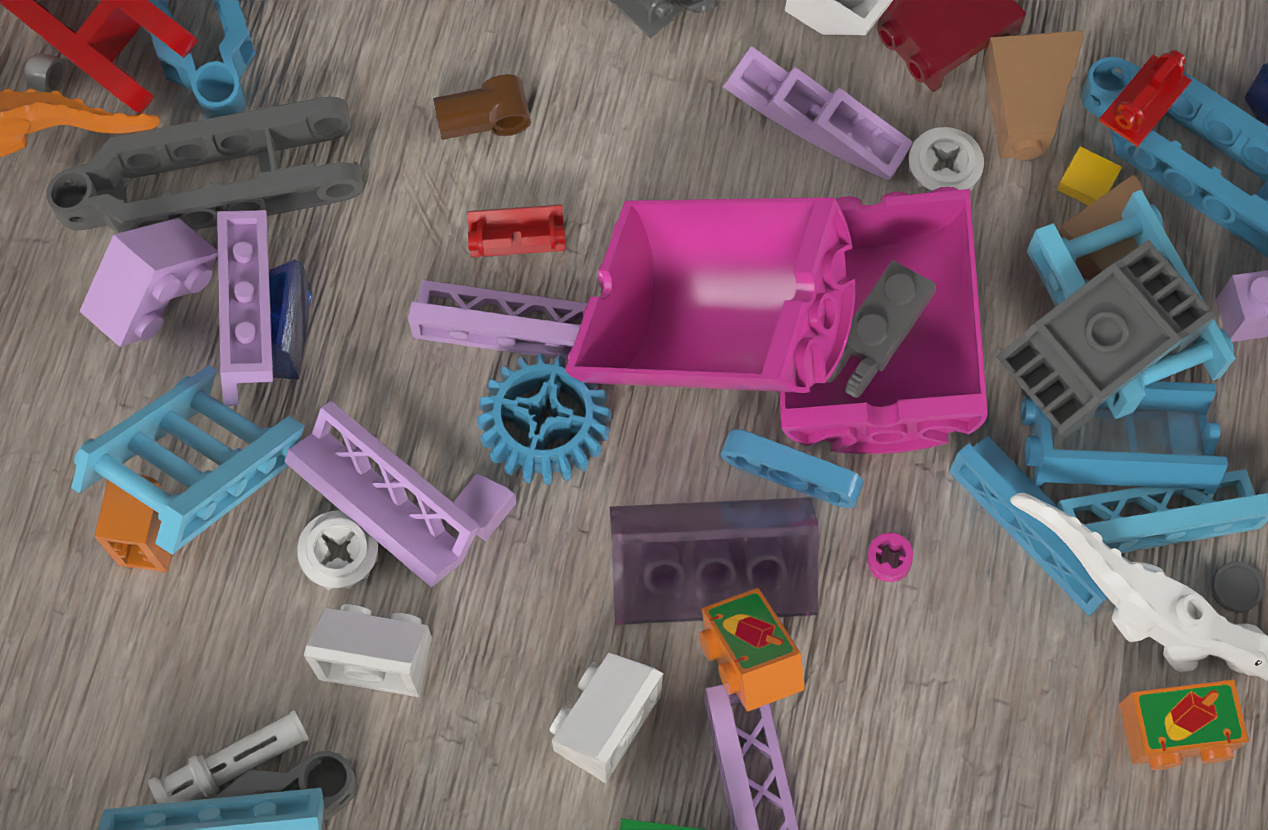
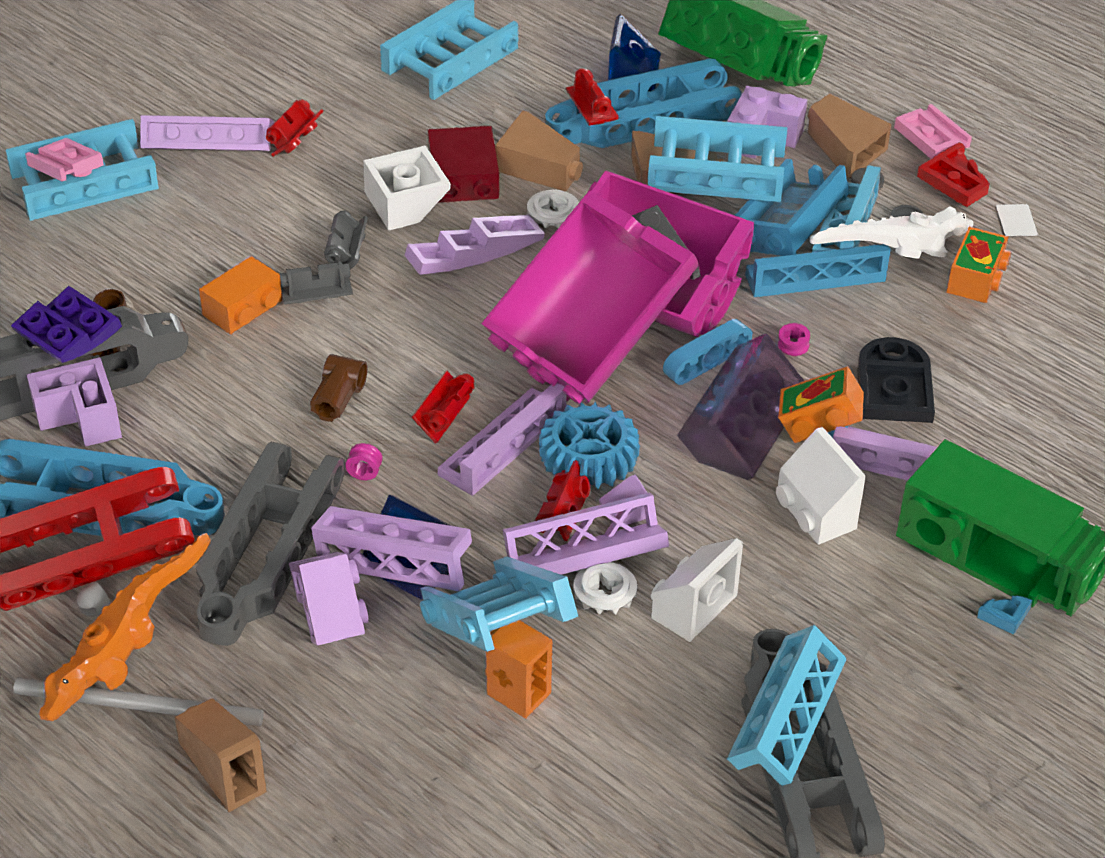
camera: 60 degrees left, 25 degrees down
(199, 770) = (725, 718): white pin -> none
(380, 202) = (365, 453): none -> dark pink bush
(425, 445) = (565, 496): none -> red hinge
(887, 716) = (896, 385): none -> black tile
(1088, 176) = (612, 159): yellow tile -> none
(1105, 336) = (742, 164): dark grey plate -> none

